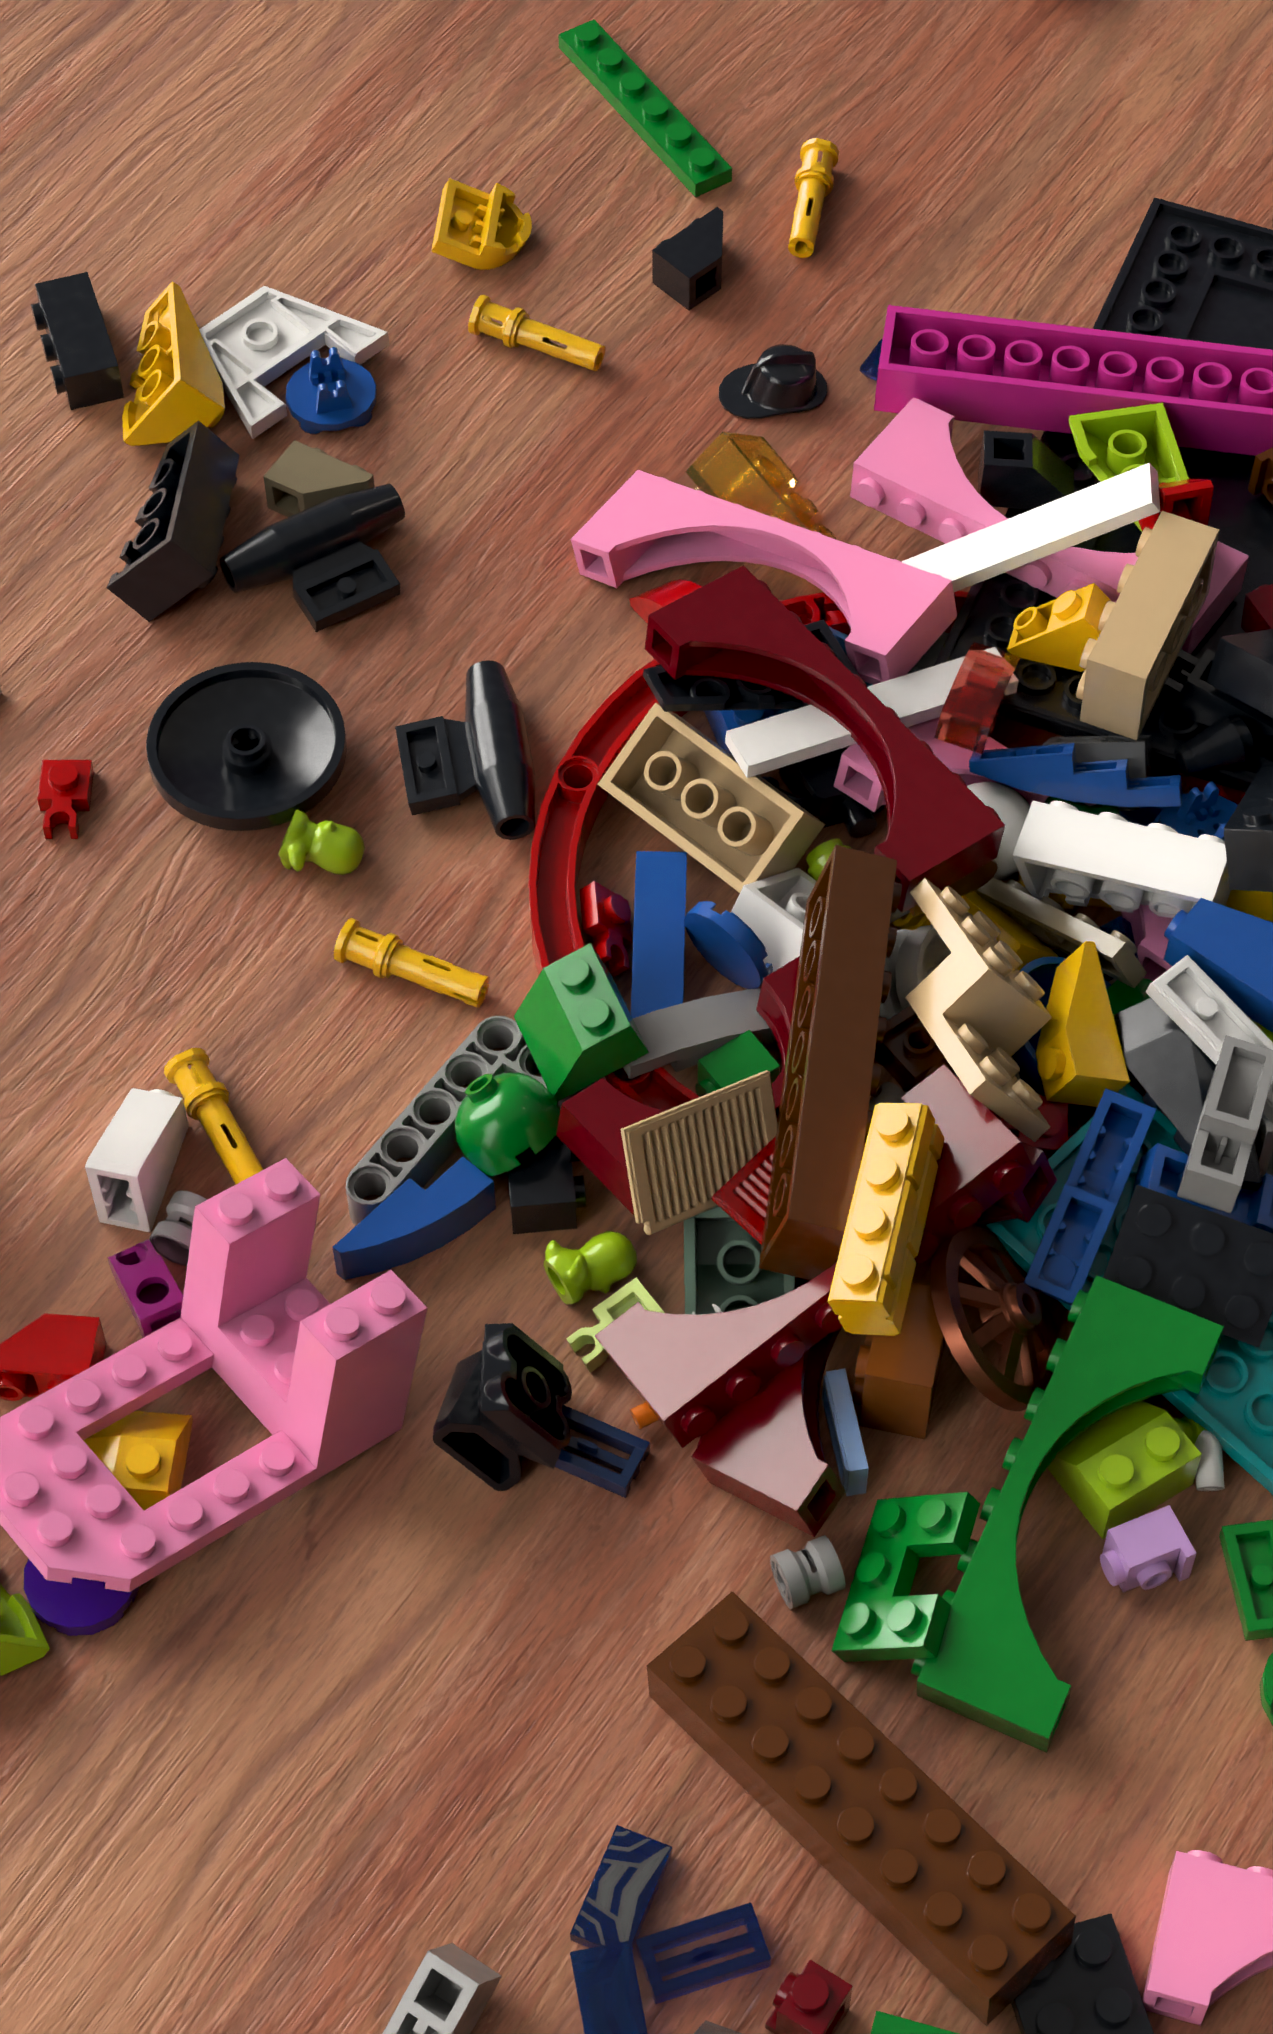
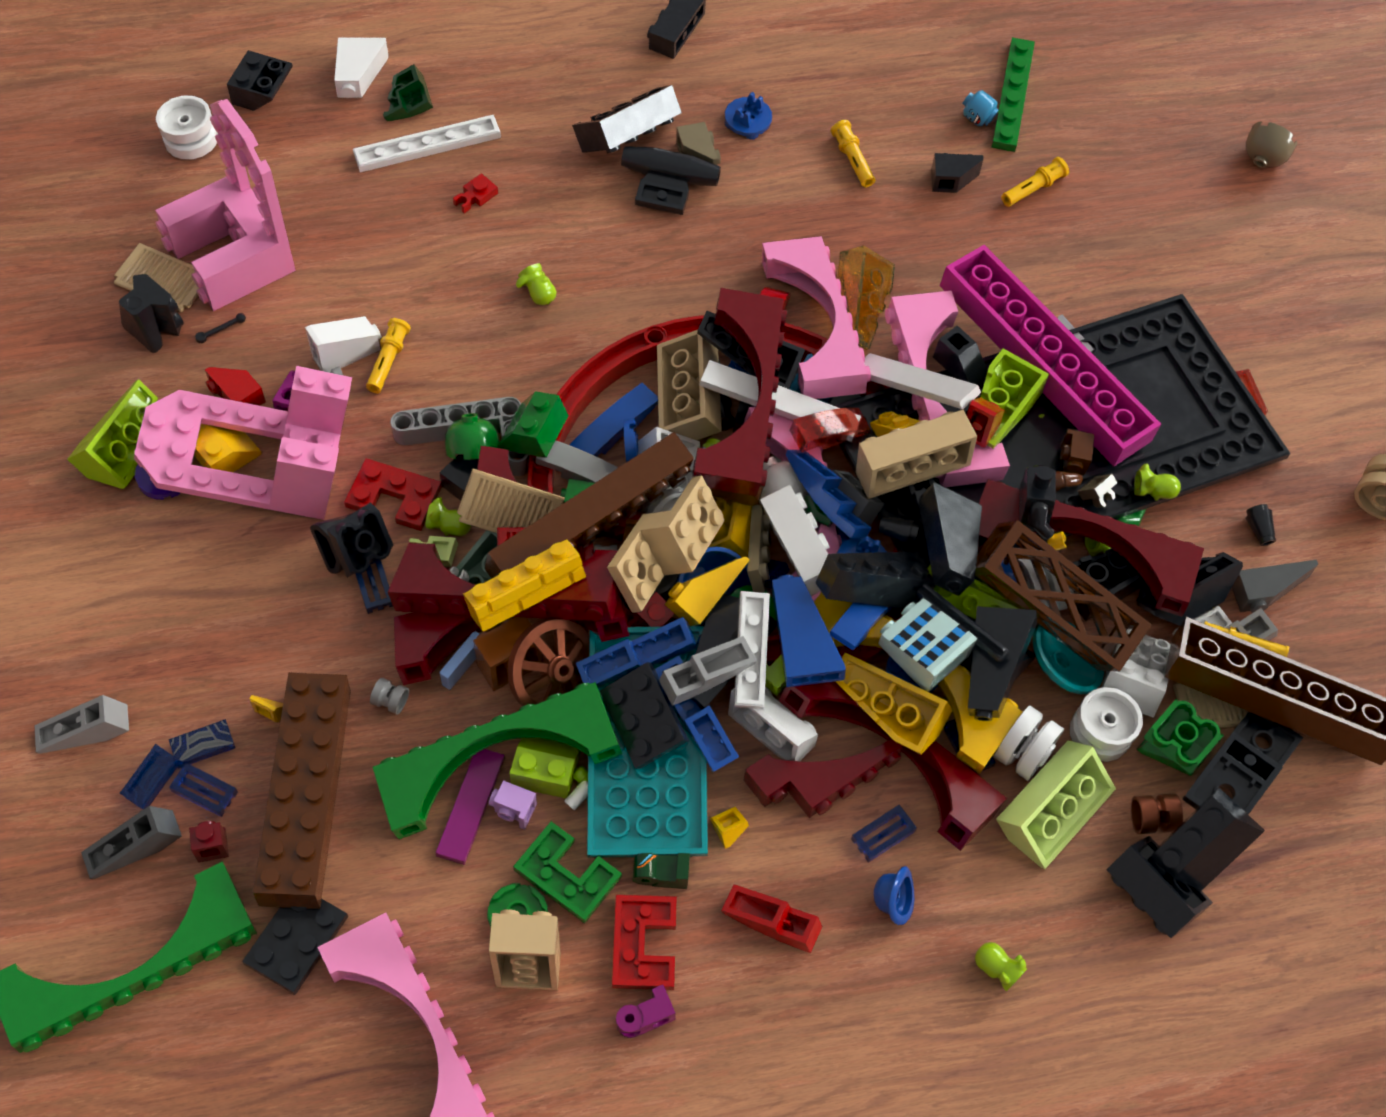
camera: 40 degrees right, 5 degrees up
(174, 378) = (694, 65): yellow wedge -> none
(246, 746) = (552, 225): black dish -> none
(270, 336) = (747, 73): white wing -> none
(389, 956) = (514, 347): yellow pin -> none
(416, 1221) = (407, 450): blue slope -> none
(479, 226) = (884, 92): yellow slope -> none
(485, 753) = (631, 298): black plate -> none
(485, 1268) = (410, 487): none -> red plate
(607, 920) = (602, 399): red plate -> none
(631, 153) = (980, 108): none -> dark azure head
(659, 1752) = (267, 708): none -> yellow slope
(776, 385) = (927, 247): black piece -> none
(879, 1614) = (391, 736): green plate -> none
(1090, 1615) = (470, 806): none -> magenta tile

